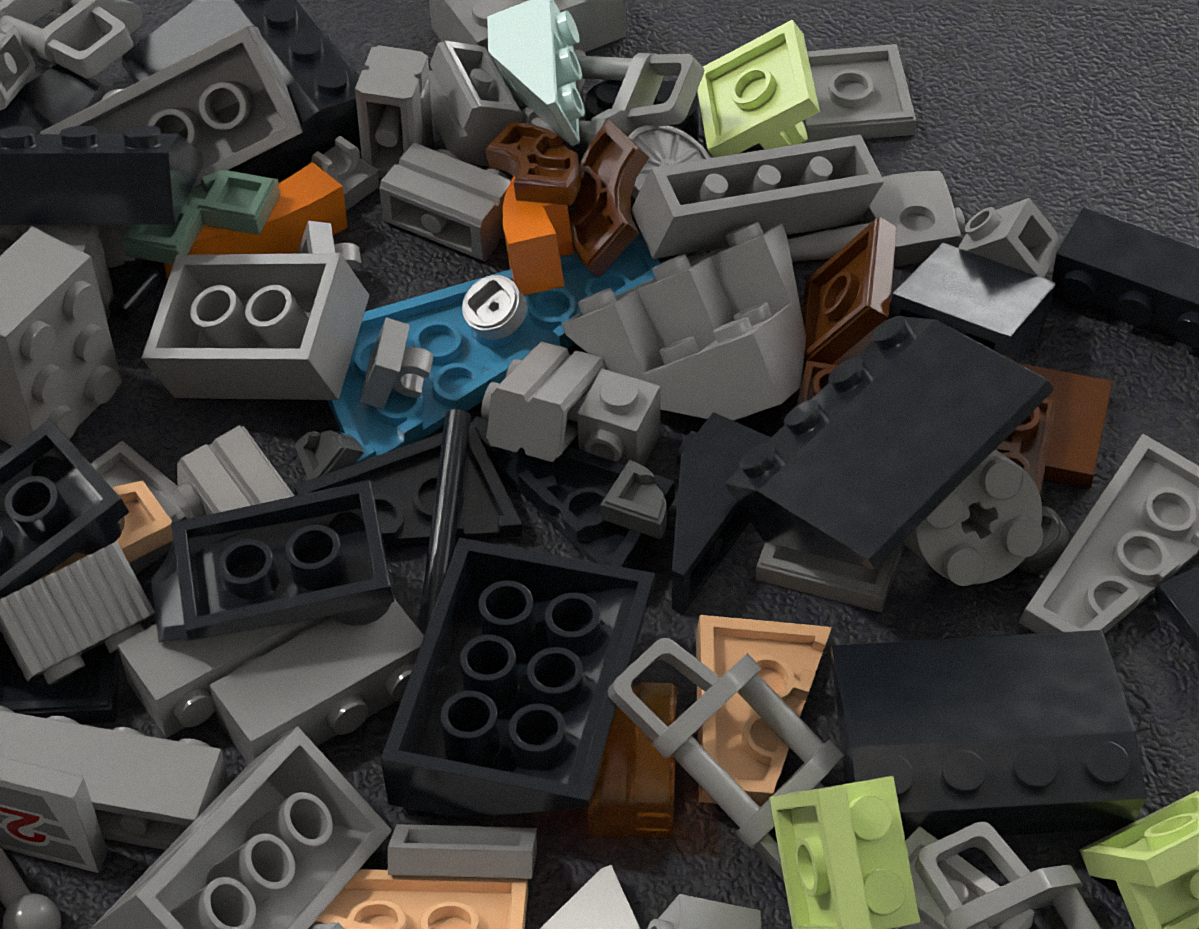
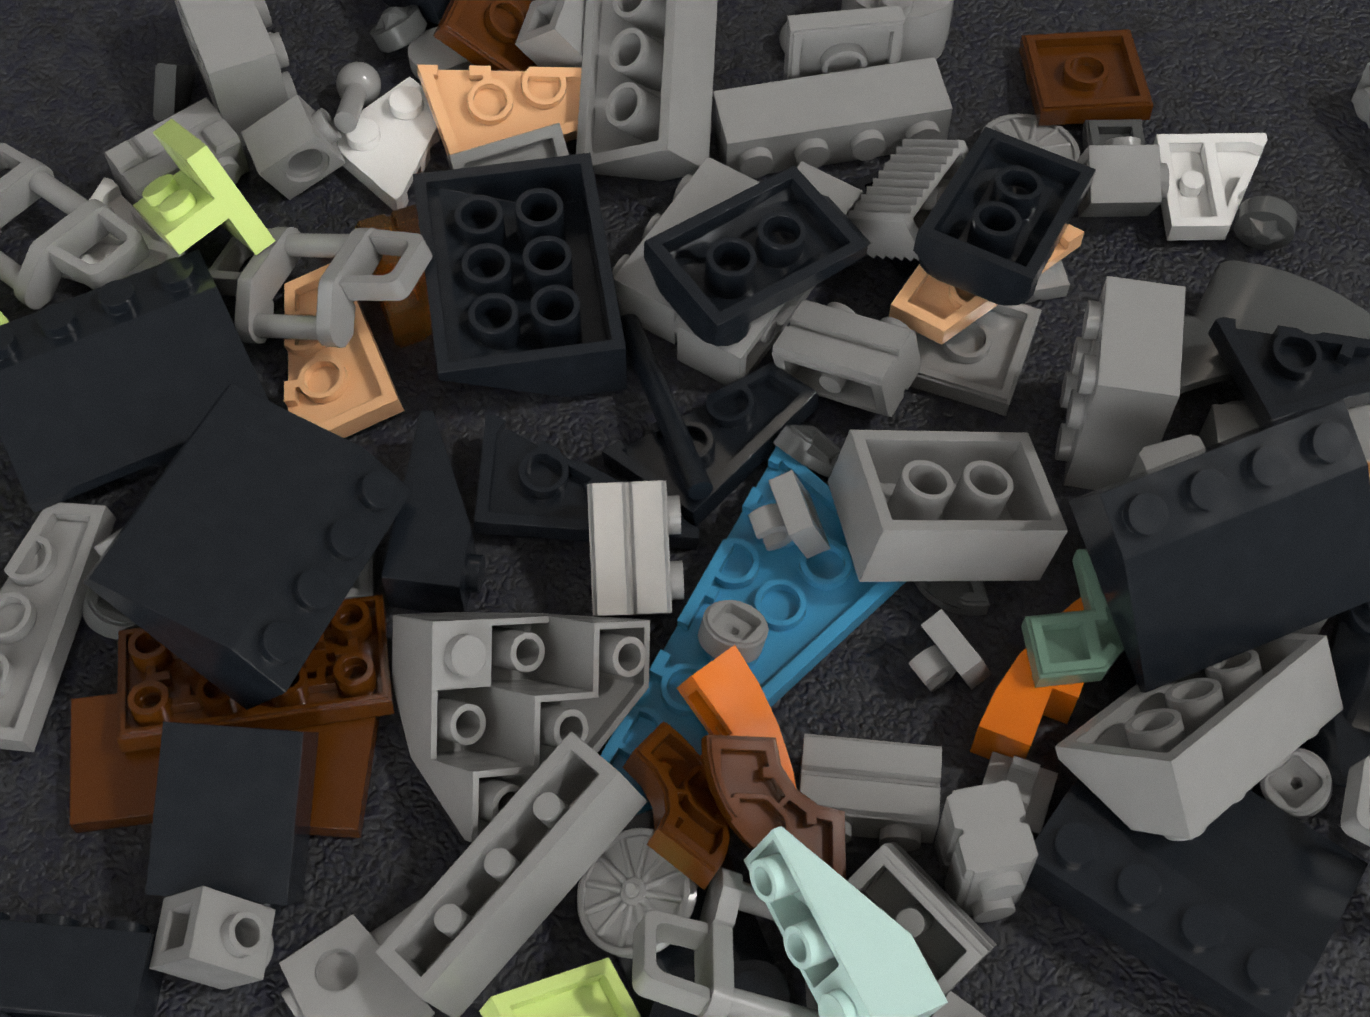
camera: 155 degrees right, 10 degrees up
(620, 418) = (554, 567): light grey brick -> none
(636, 502) = (494, 475): dark grey tile -> none
(849, 294) = (370, 785): reddish brown tile -> none

